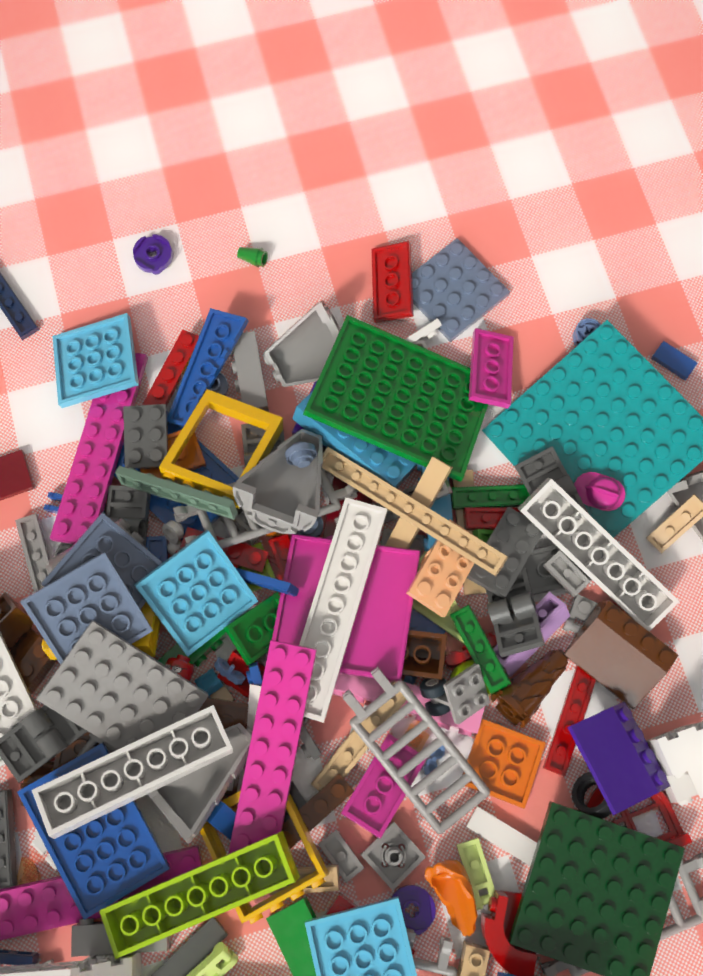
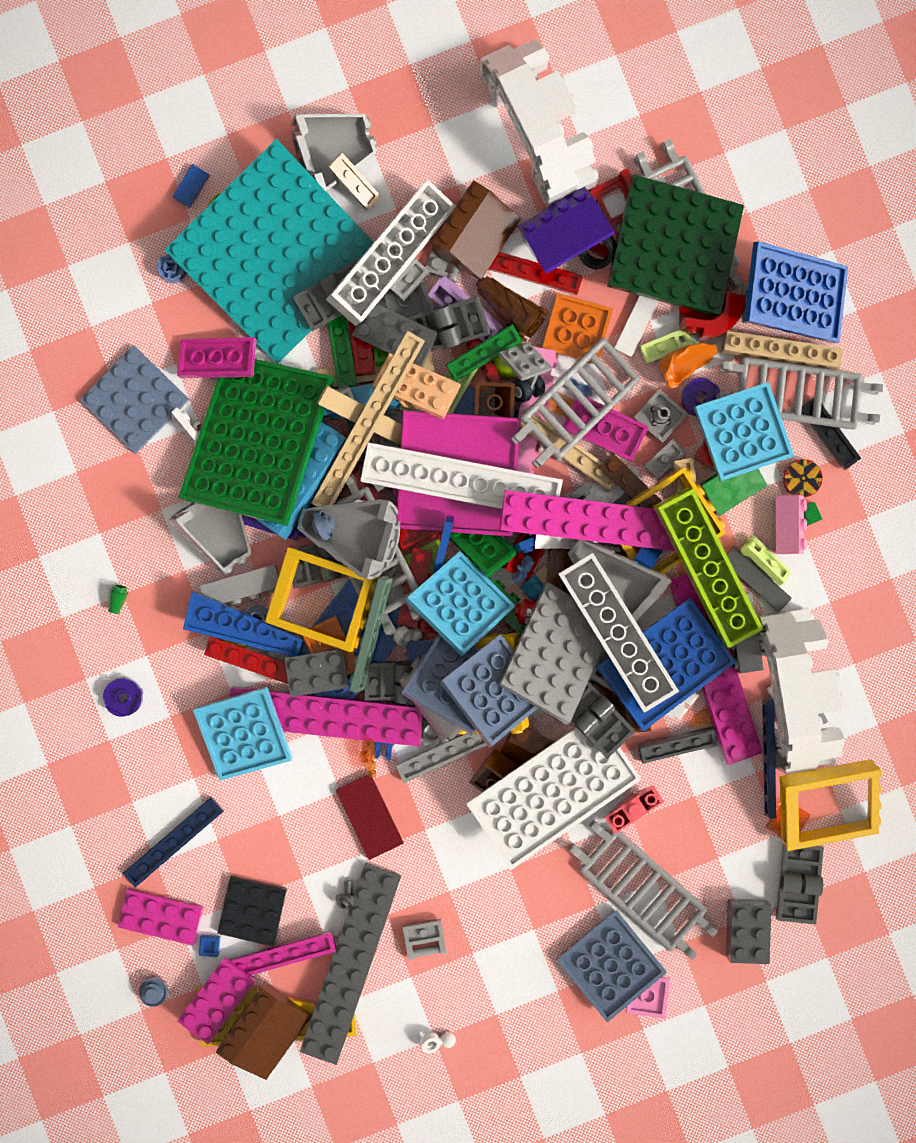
camera: 90 degrees left, 15 degrees up
(50, 484) = (367, 757): none -> clear orange plate
(392, 282) = (133, 459): red tile -> none
(600, 491) = (330, 252): dark pink piece -> none

